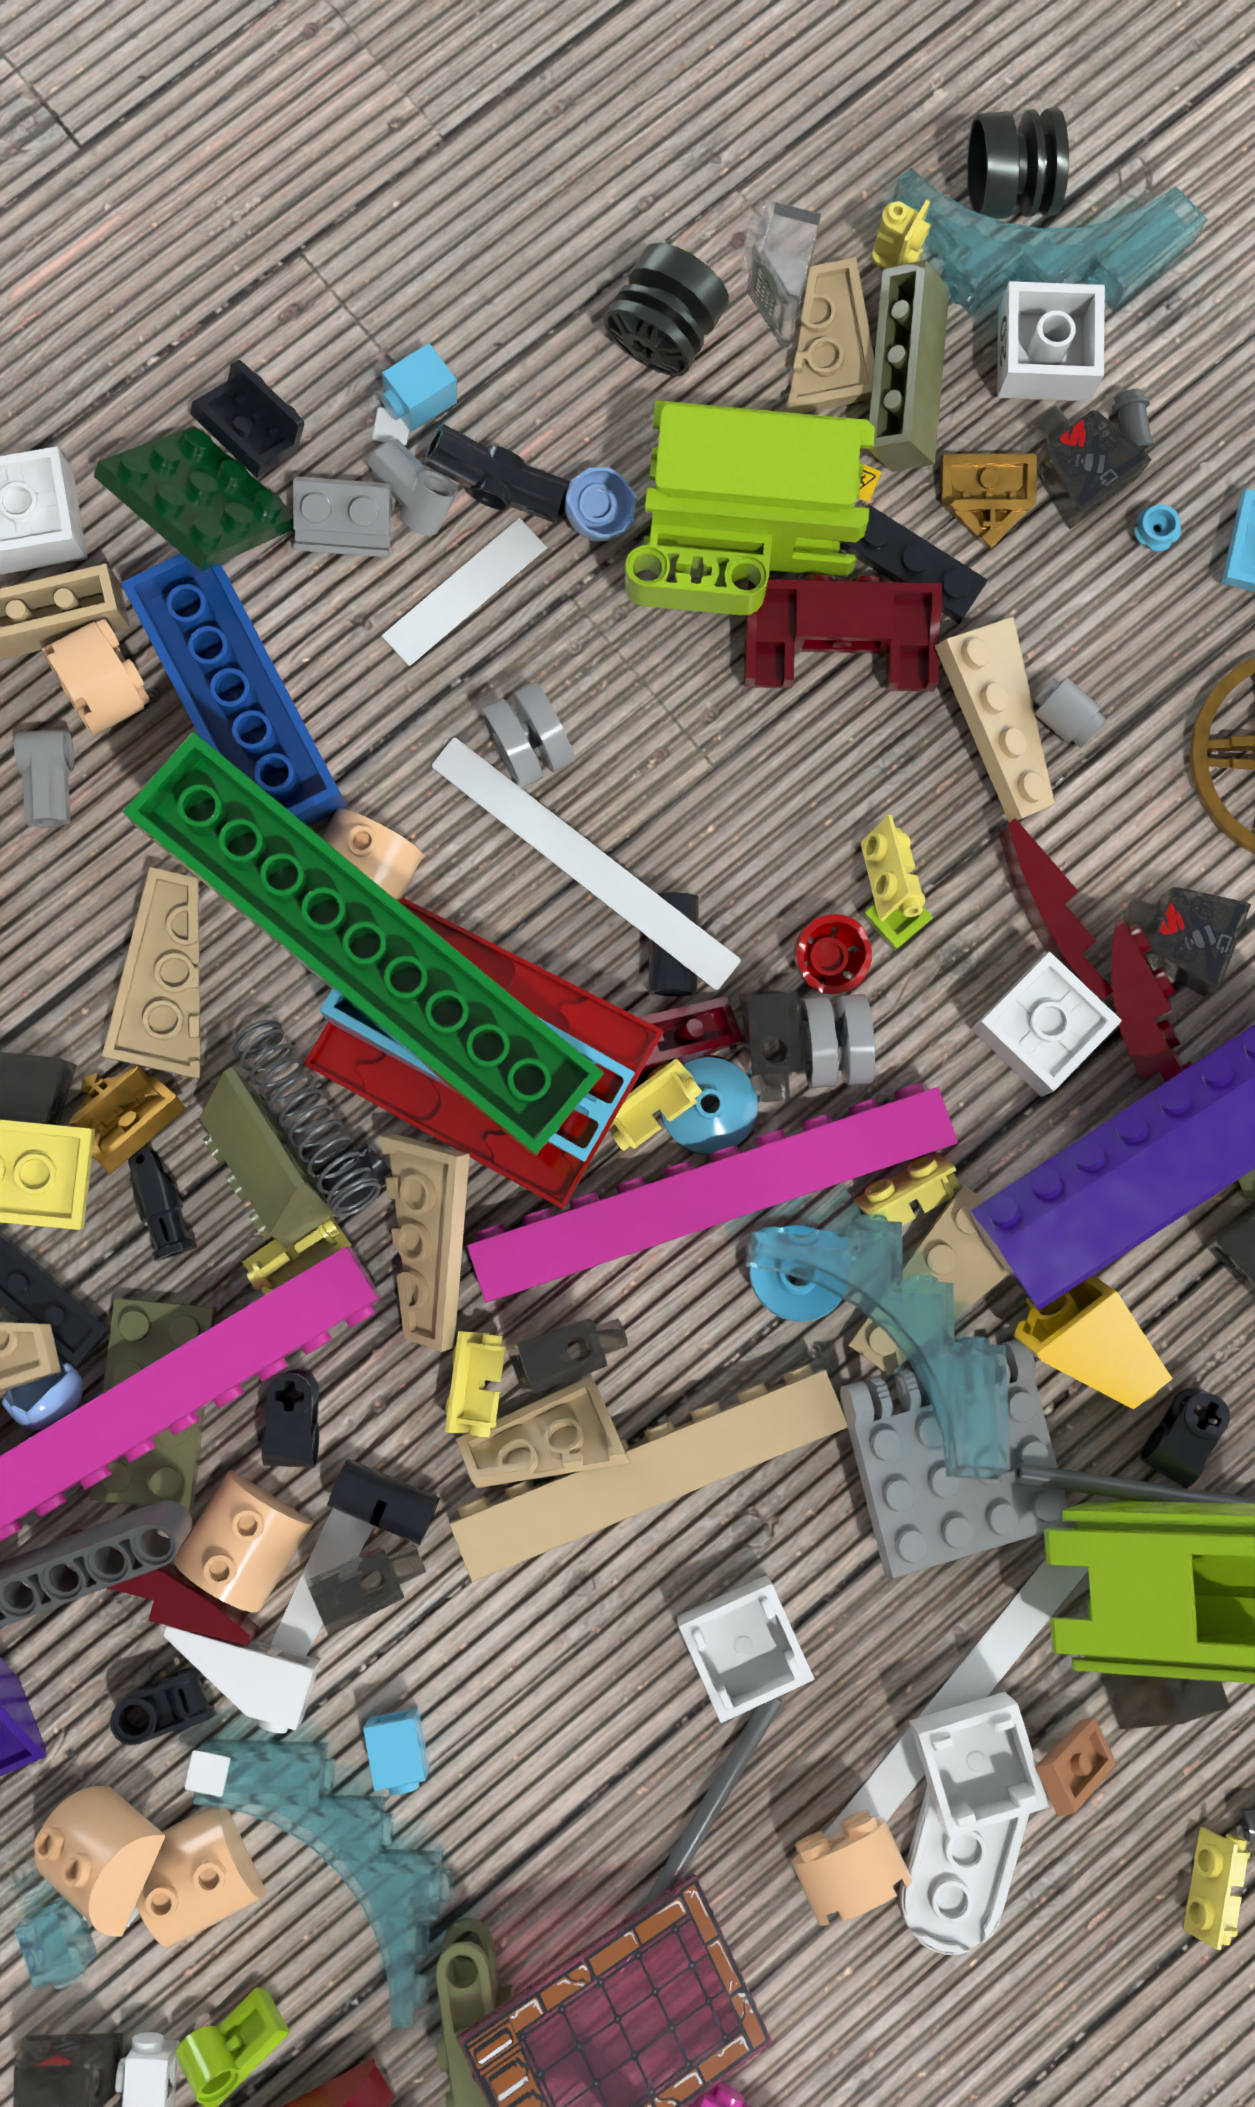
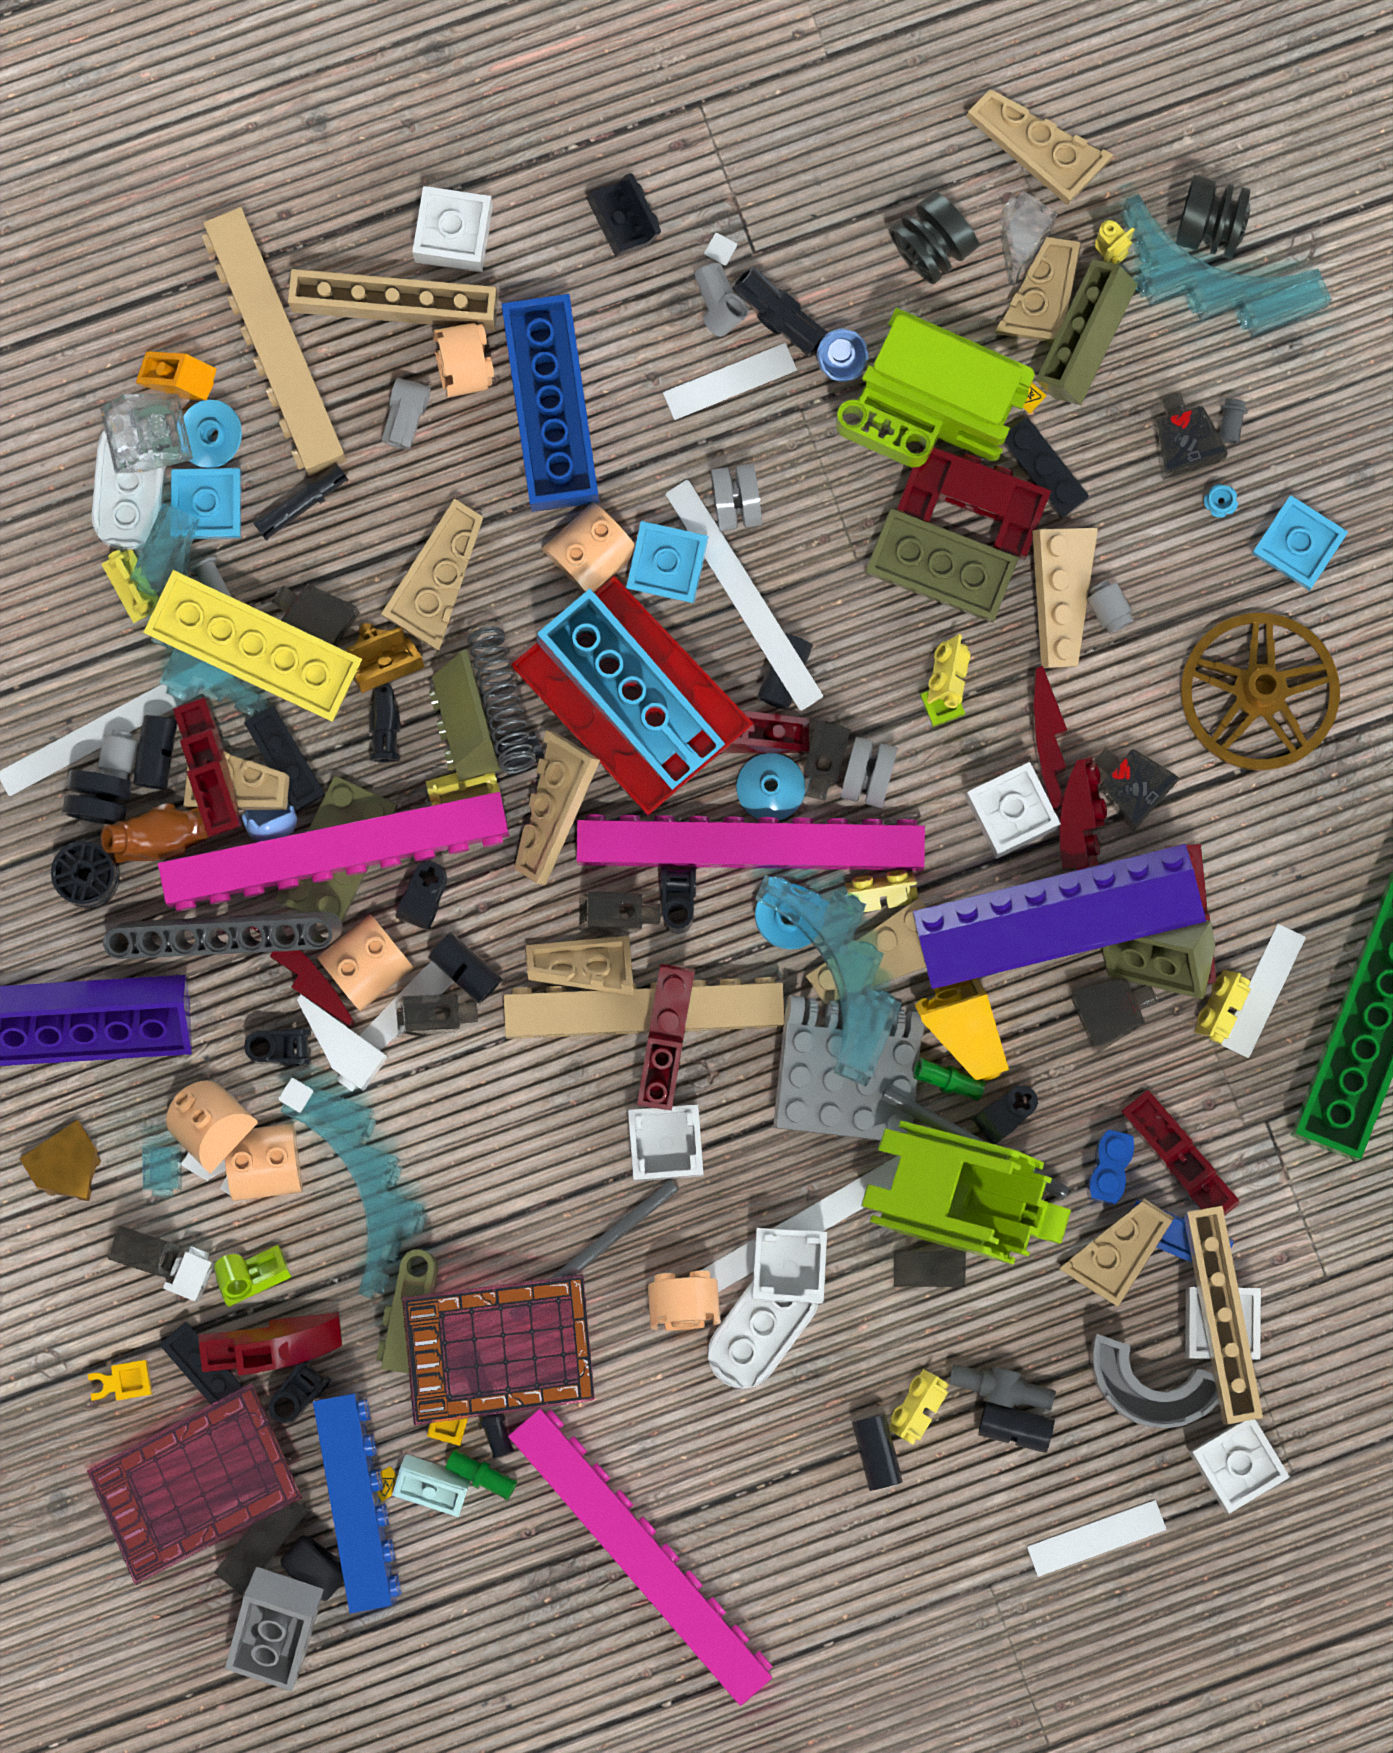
camera: 30 degrees right, 0 degrees up
(195, 497) = (571, 260): dark green plate -> none
(342, 516) = (664, 304): light grey plate -> none
(363, 943) = (581, 603): green brick -> none
(396, 1751) = (418, 1129): medium azure brick -> none
(418, 388) = (746, 232): medium azure brick -> none
(465, 853) = (667, 562): none -> medium azure plate
(469, 1406) = (556, 897): light yellow hinge -> none
(638, 1295) = (678, 891): none -> black piece
(667, 1089) = (746, 765): light yellow hinge -> none
(696, 1509) = (666, 1037): none -> dark red slope
(751, 156) = (1049, 154): none -> tan wing
(829, 955) = (888, 715): red helmet -> none
(830, 734) = (942, 565): none -> olive plate
(988, 491) = (1114, 435): pearl gold slope -> none
(1050, 341) = (1191, 347): white brick -> none
(1076, 1767) = (852, 1289): nougat plate -> none
(1092, 1419) = (948, 1079): none -> green pin
(1188, 1976) = (877, 1452): none -> black pin

